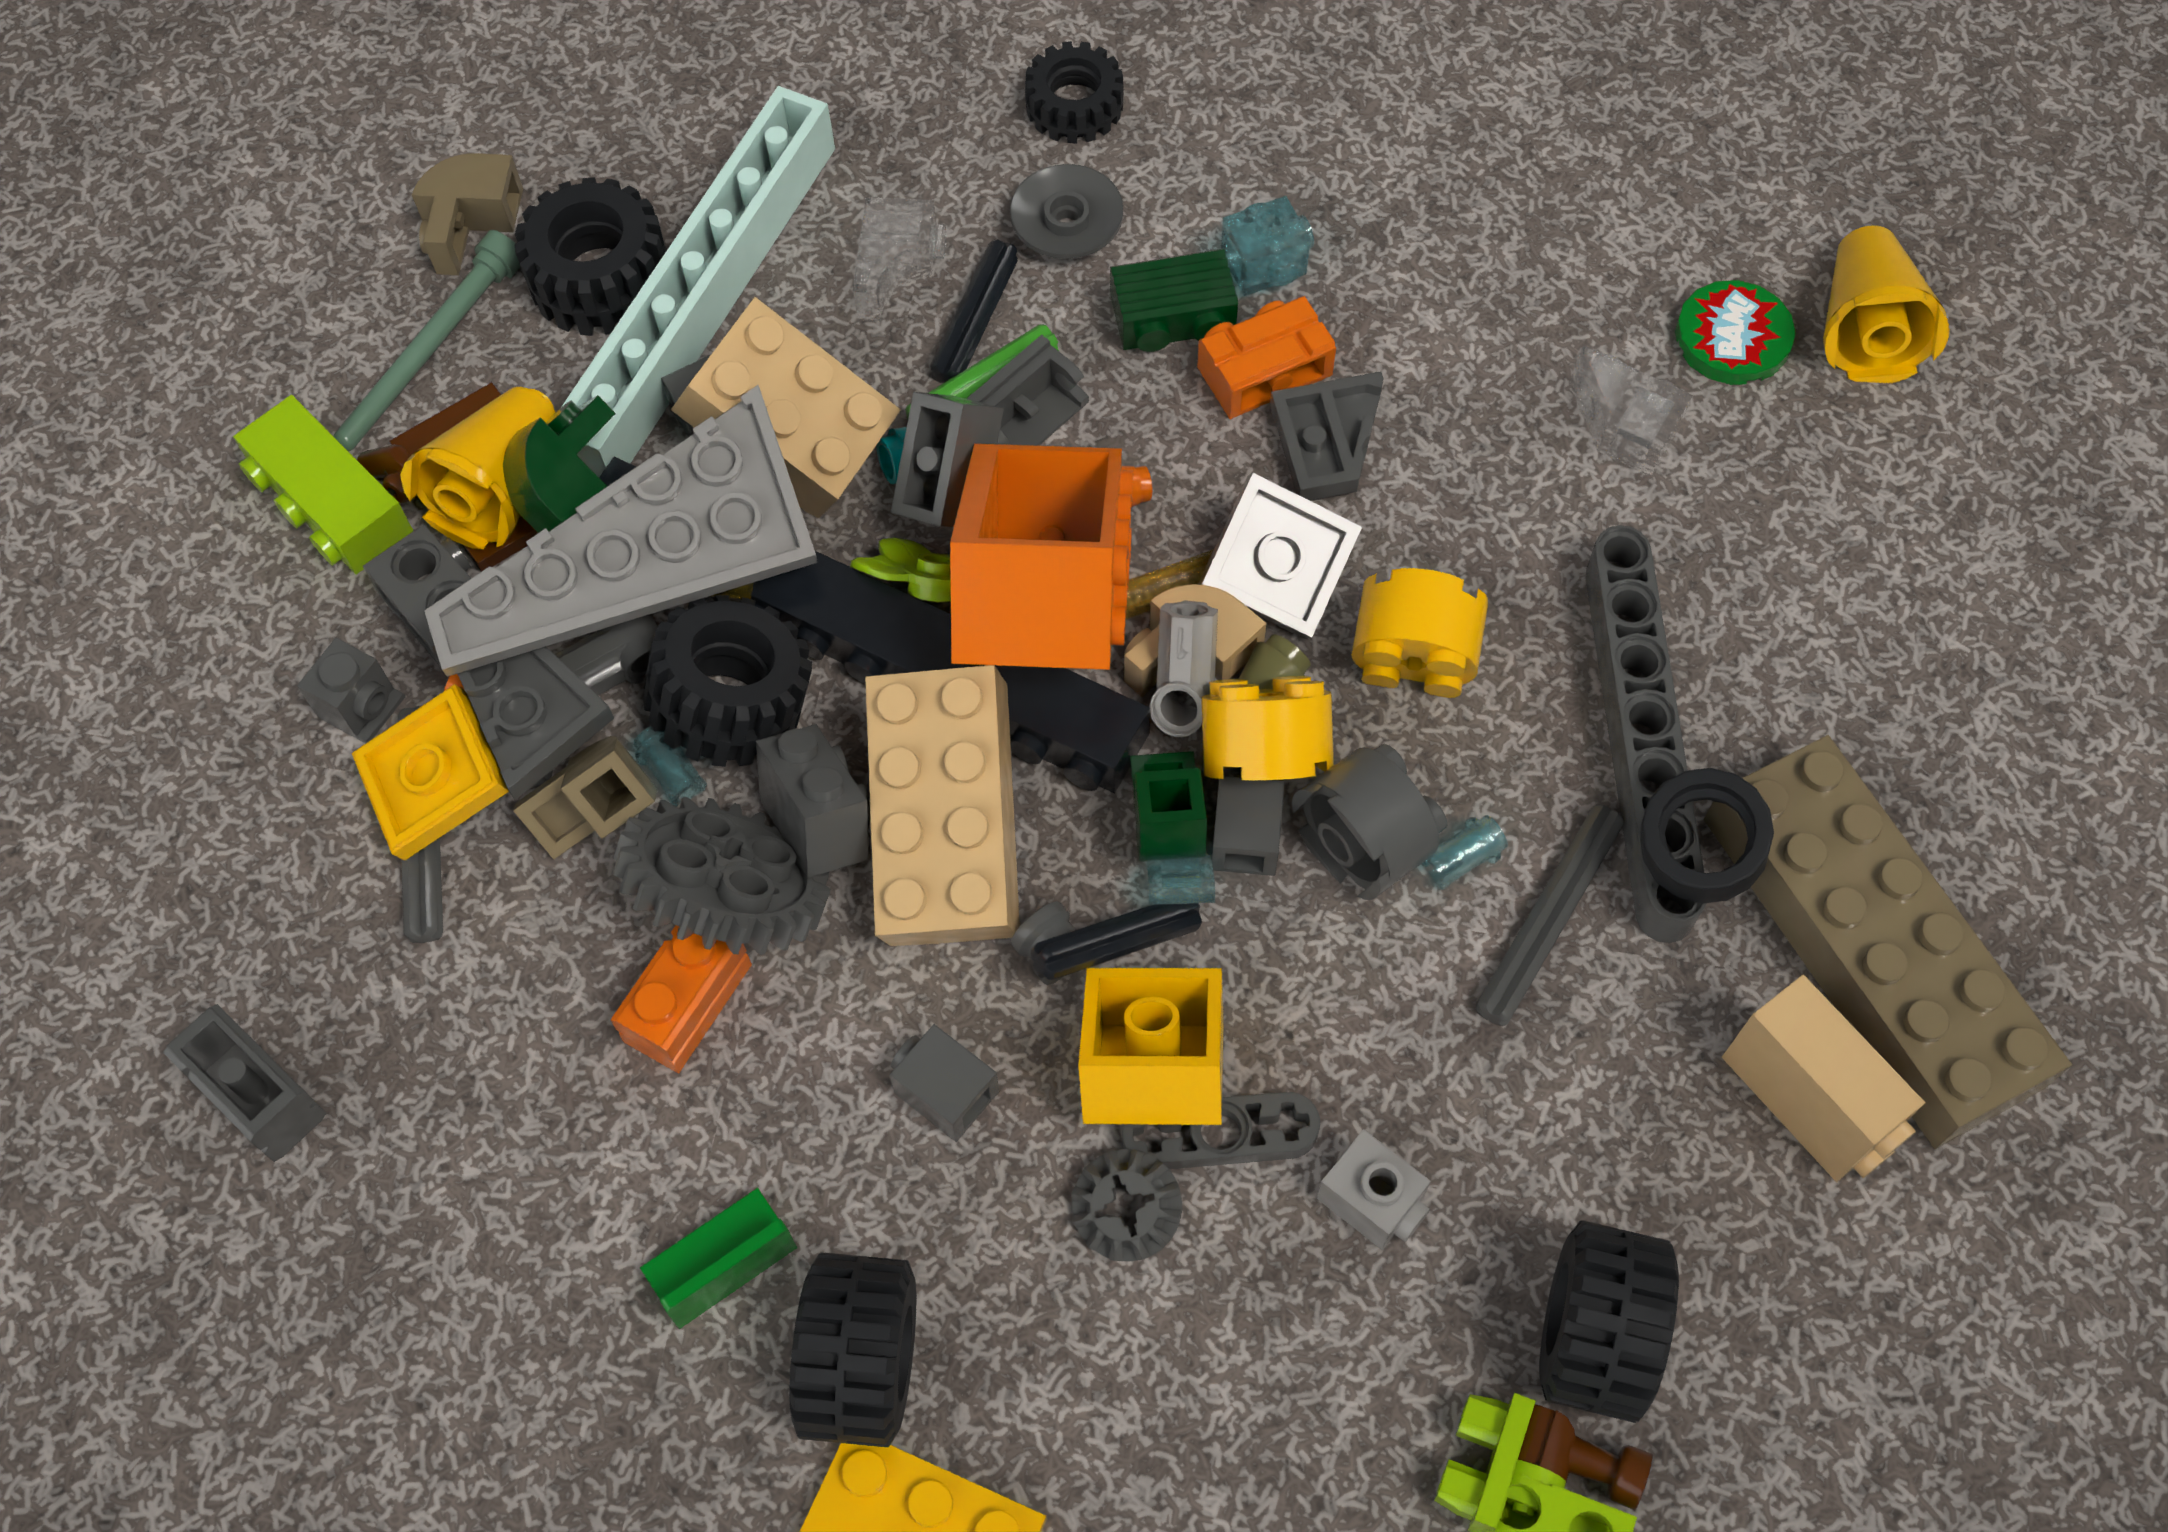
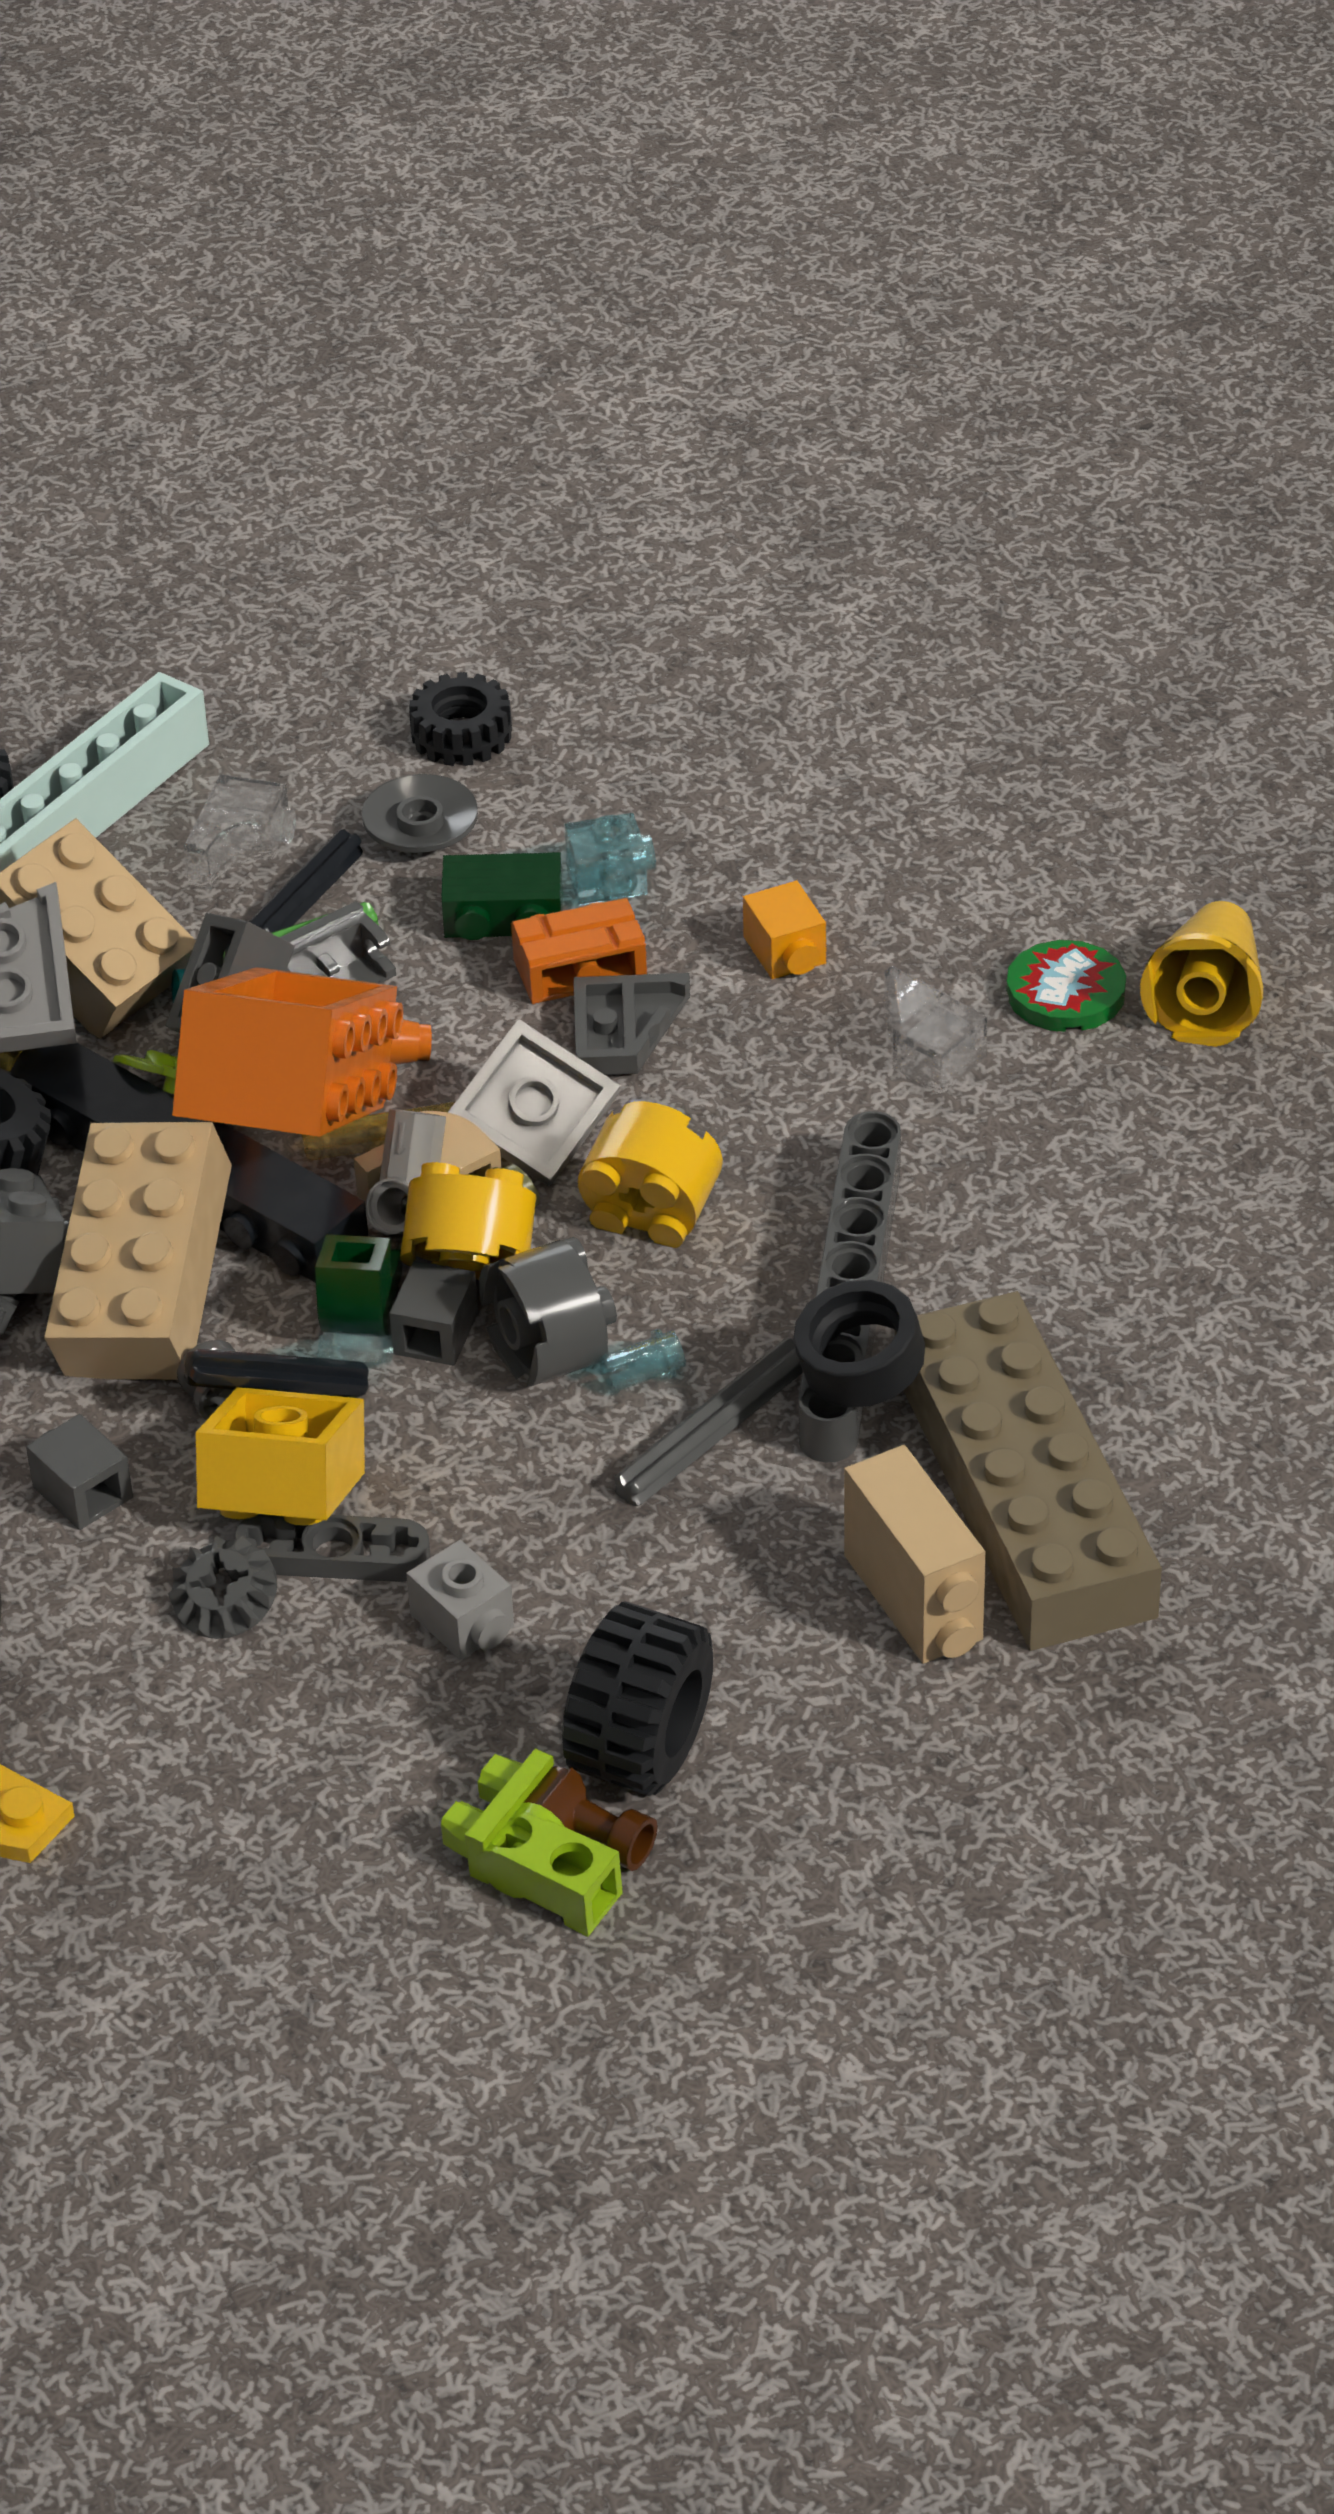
camera: 10 degrees right, 20 degrees down
(1457, 307) = (784, 930): none -> light orange brick

